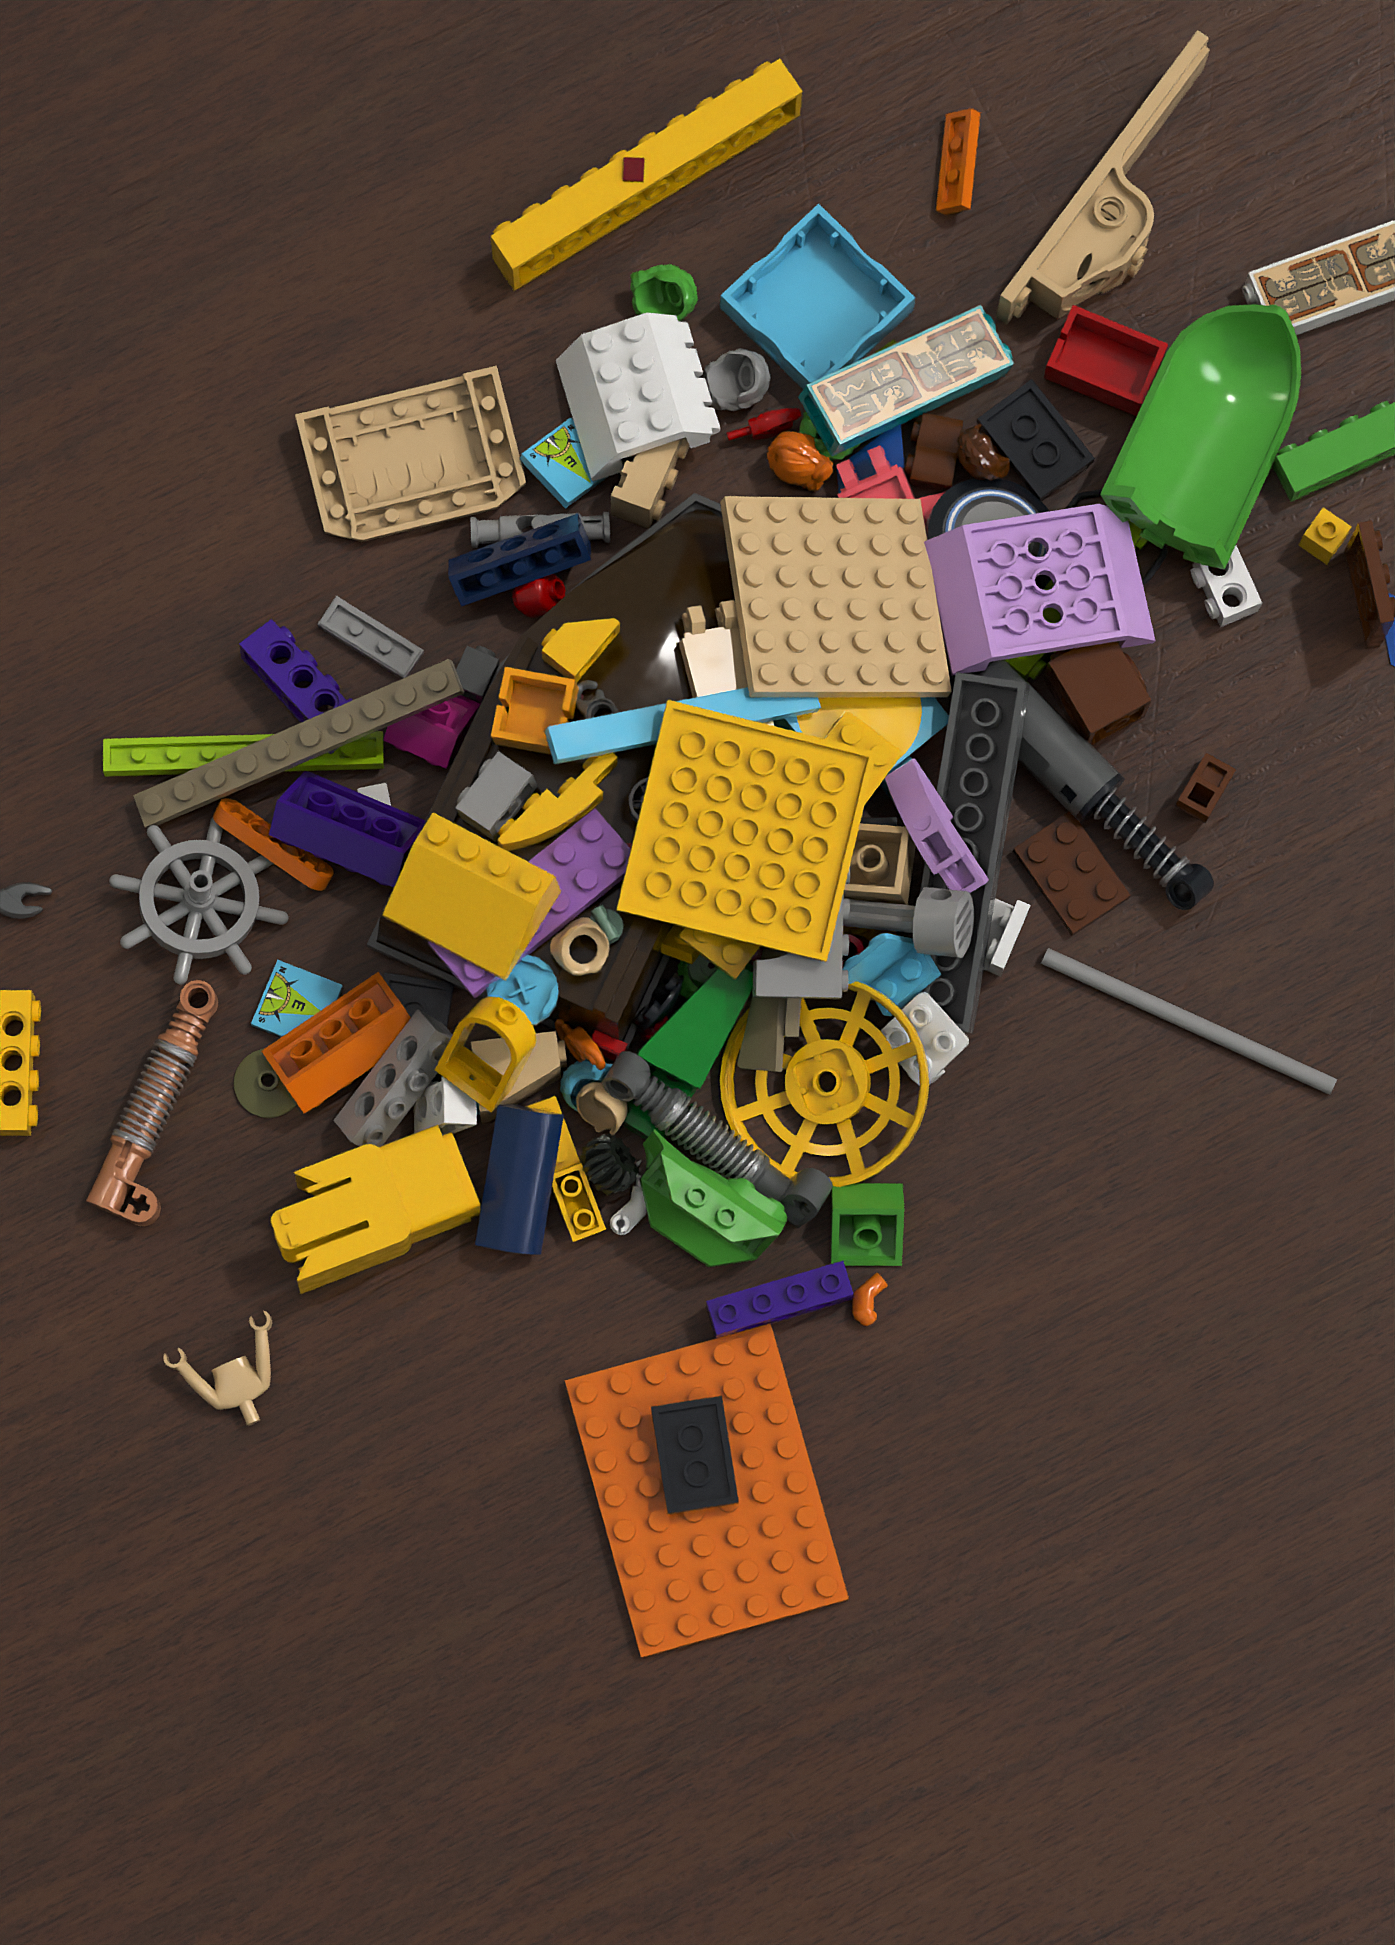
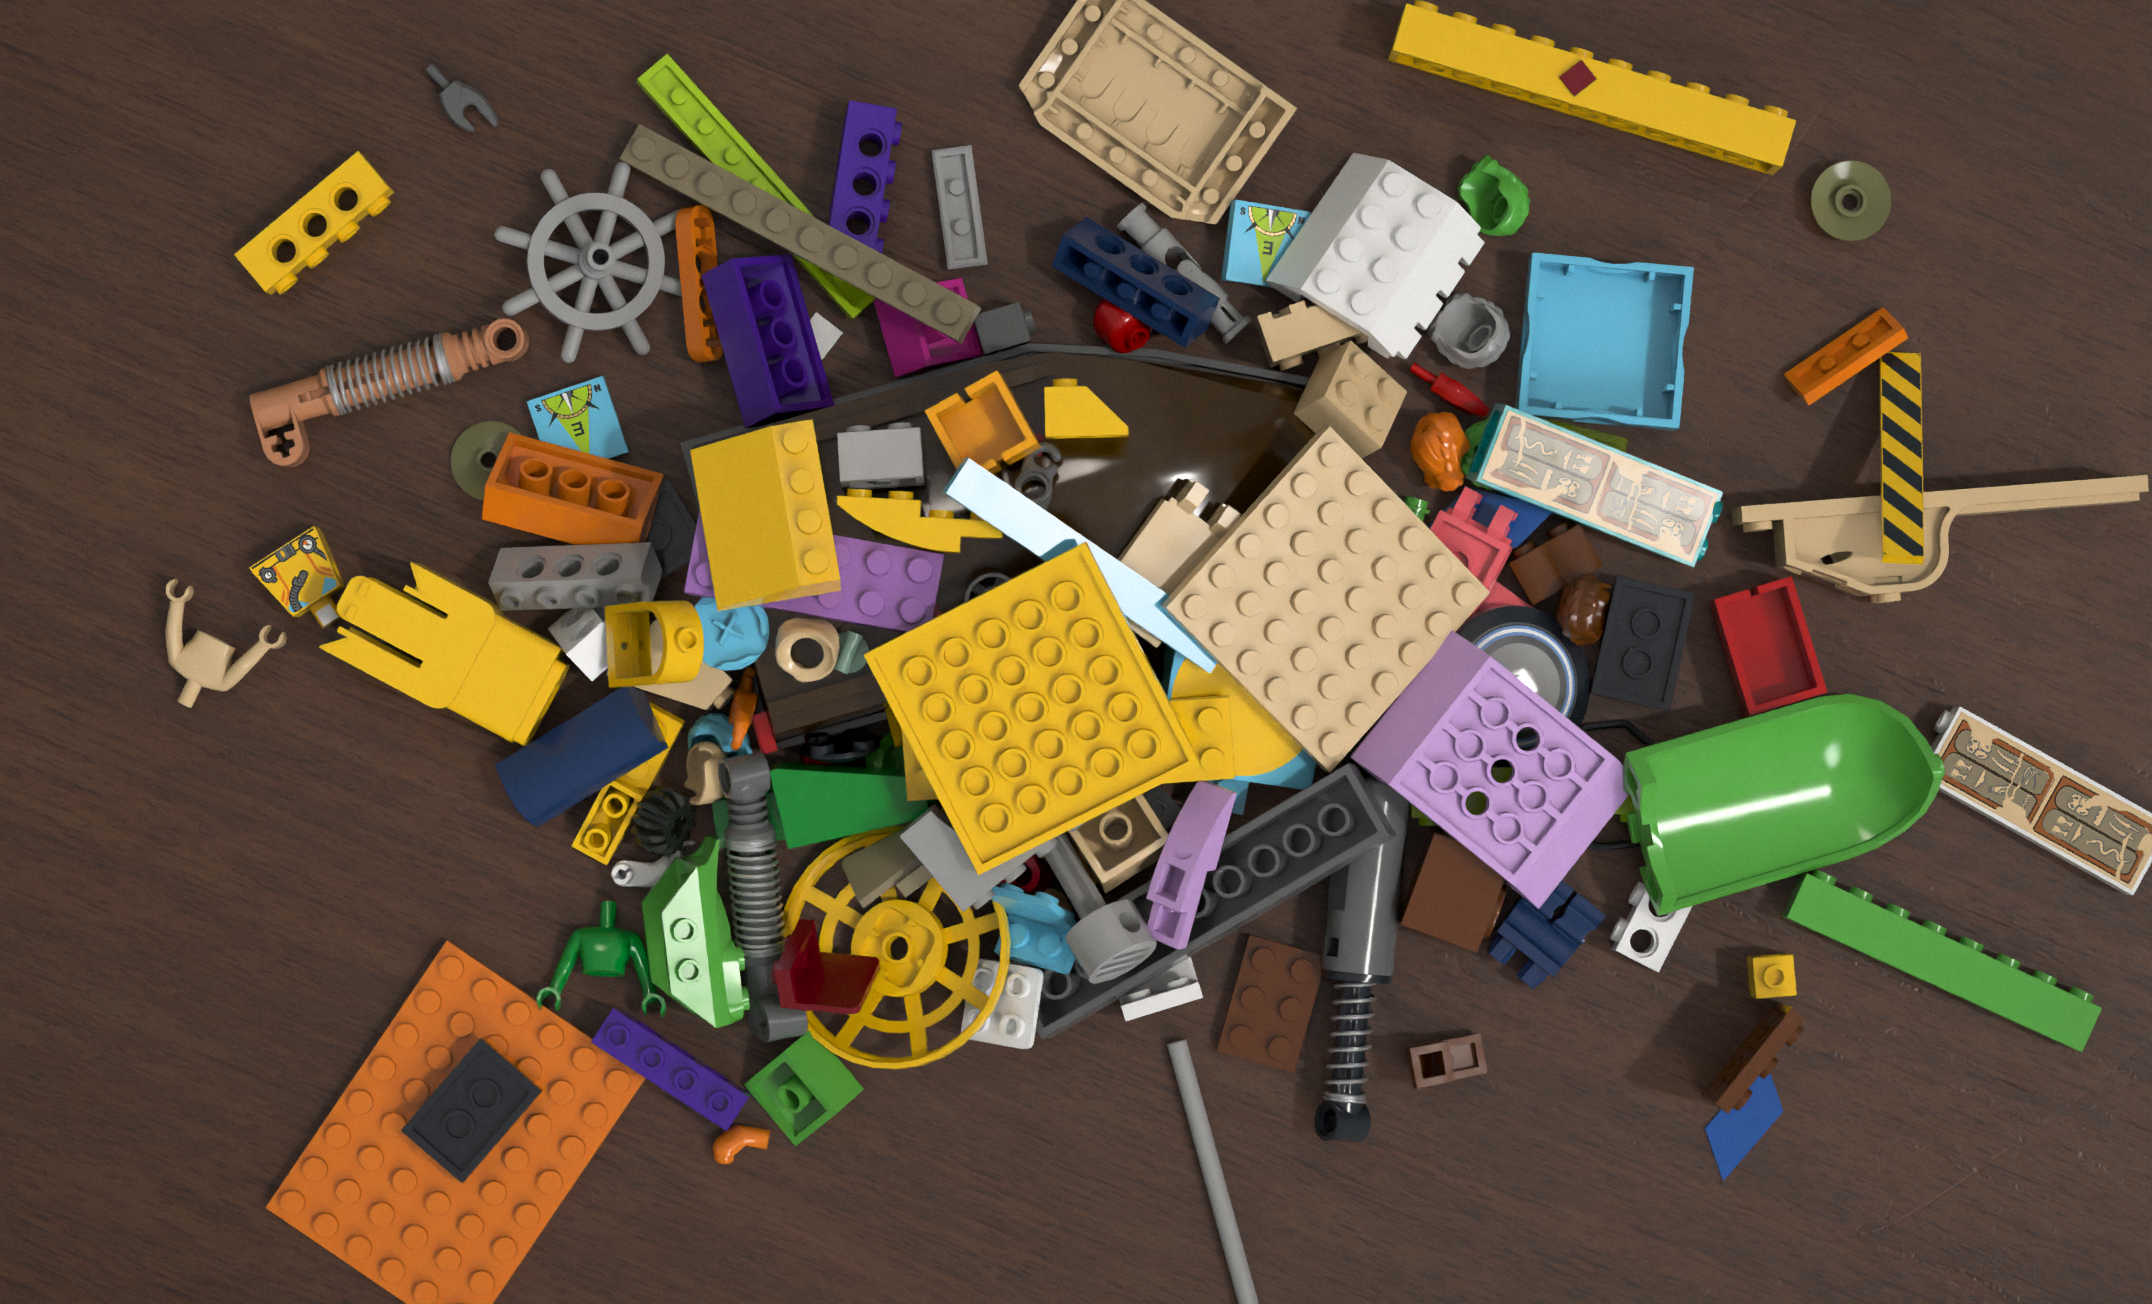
camera: 55 degrees right, 10 degrees up
(238, 1269) = (303, 576): none -> yellow torso
(664, 1282) = (603, 954): none -> green piece
(707, 477) = (1352, 398): none -> tan brick
(806, 1142) = (821, 979): none -> dark red bracket
(863, 62) = (1868, 190): none -> olive dish
(1055, 173) = (1901, 458): none -> tile
(1174, 665) = (1544, 941): none -> dark blue hips

